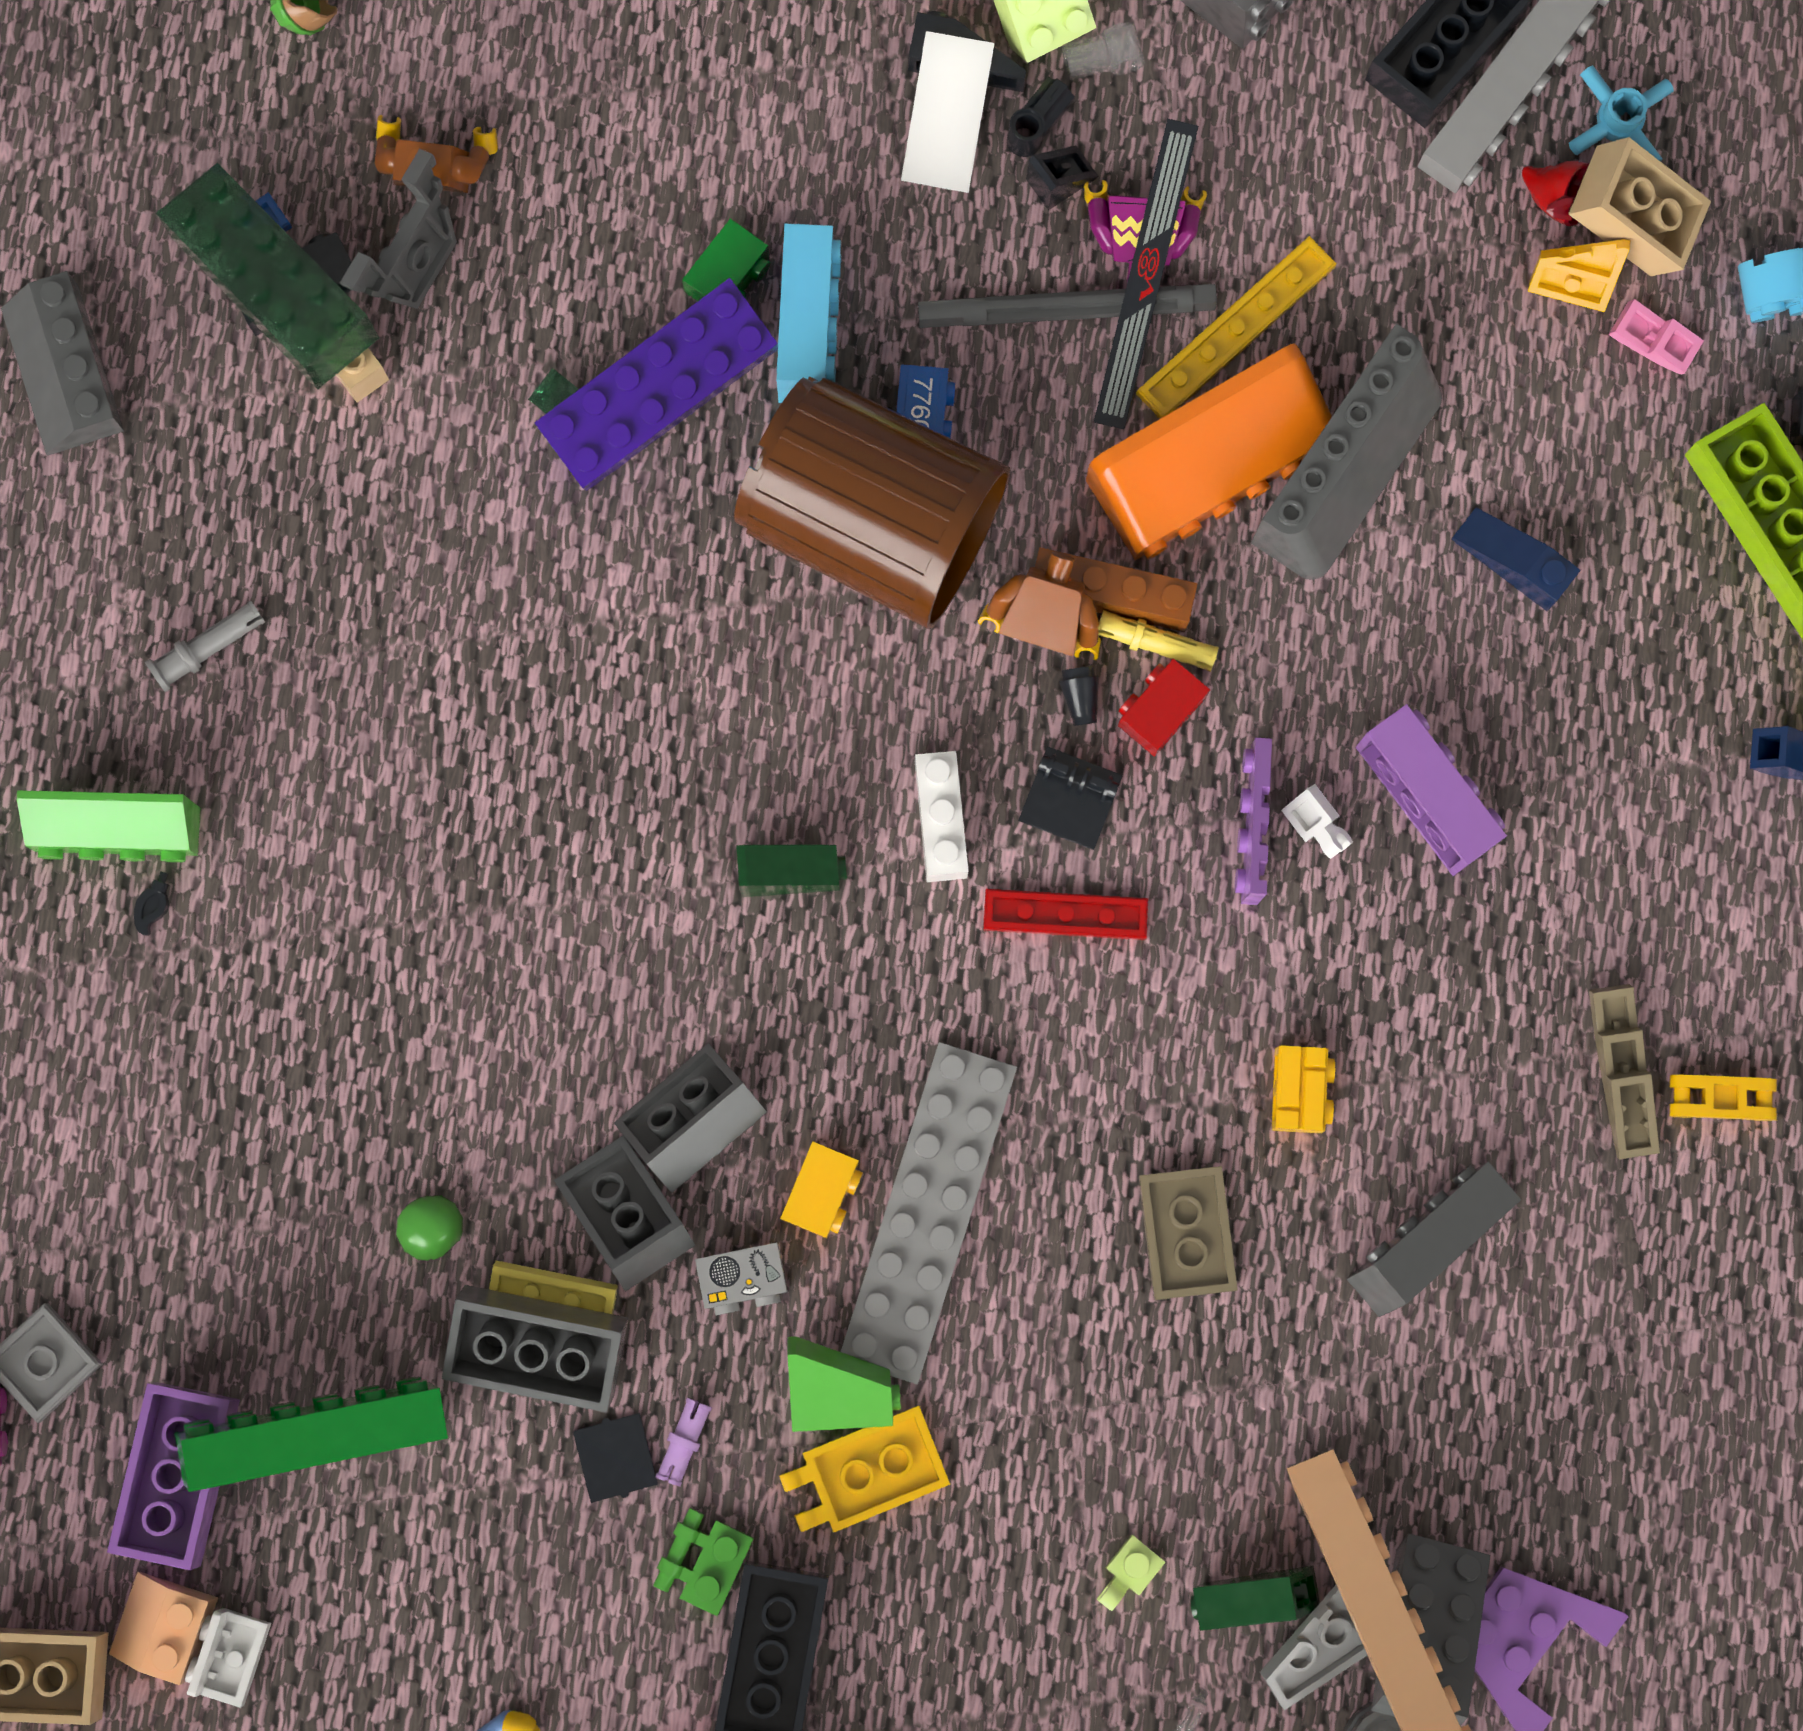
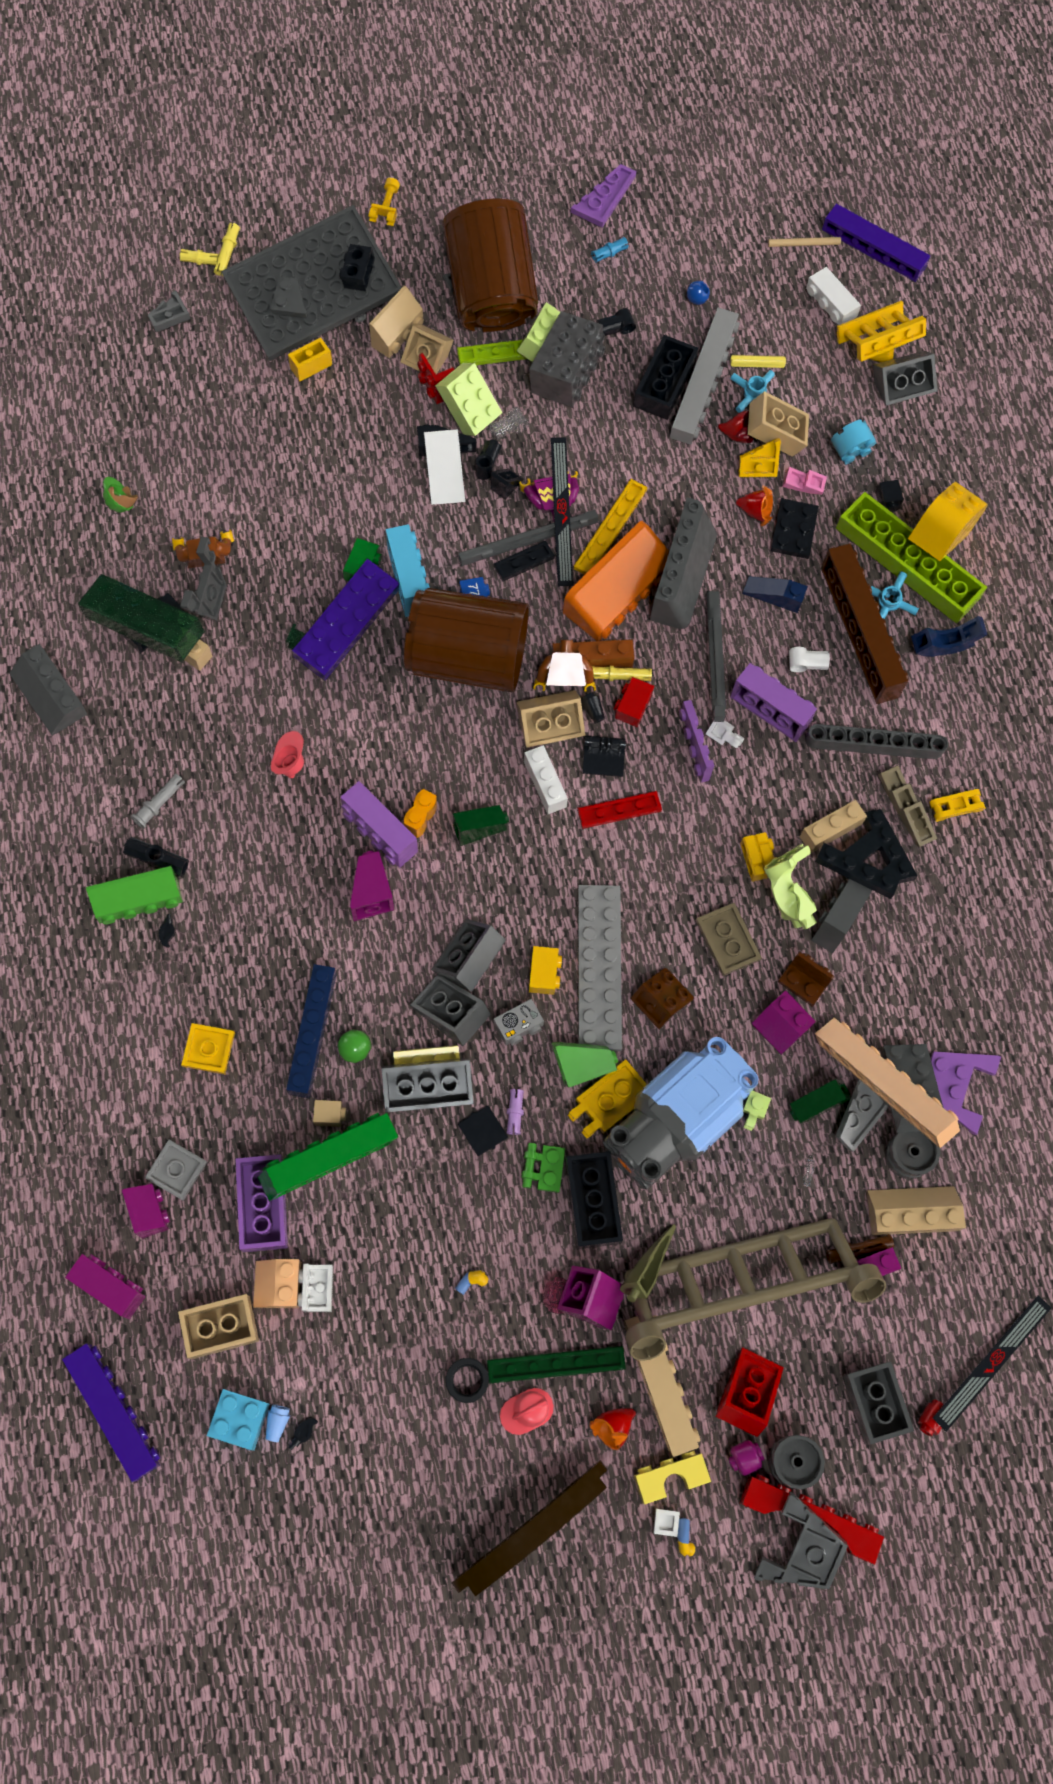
camera: 20 degrees left, 10 degrees down
(153, 740) = (144, 852): none -> black piece
(162, 1153) = (208, 1048): none -> yellow plate
(344, 1343) = (328, 1113): none -> tan brick
(357, 1180) = (311, 1031): none -> dark blue brick
(468, 628) = (288, 755): none -> coral piece
(544, 936) = (371, 888): none -> magenta slope
(594, 812) = (378, 824): none -> medium lavender brick
(675, 822) = (422, 811): none -> light orange brick
(981, 1549) = (681, 1112): none -> piece
(991, 694) = (551, 718): none -> tan slope
(1026, 1308) = (661, 997): none -> reddish brown bracket
(1043, 351) = (524, 561): none -> black tile
(1236, 1427) = (783, 1022): none -> magenta slope
(1305, 1357) = (806, 978): none -> reddish brown bracket
(1325, 1187) = (789, 896): none -> yellowish green hips
(1352, 659) = (716, 656): none -> dark grey piece
(1463, 1071) = (833, 826): none -> tan brick
(1467, 1159) = (851, 861): none -> black plate
(1521, 714) = (801, 659): none -> white piece
(1542, 366) = (758, 505): none -> red hat
(1601, 432) = (794, 528): none -> black plate
(1627, 922) = (884, 737): none -> dark grey beam
(1650, 50) = (757, 361): none -> light yellow axle
(1667, 677) = (864, 623): none -> reddish brown brick
(1726, 652) = (896, 592): none -> medium azure bar

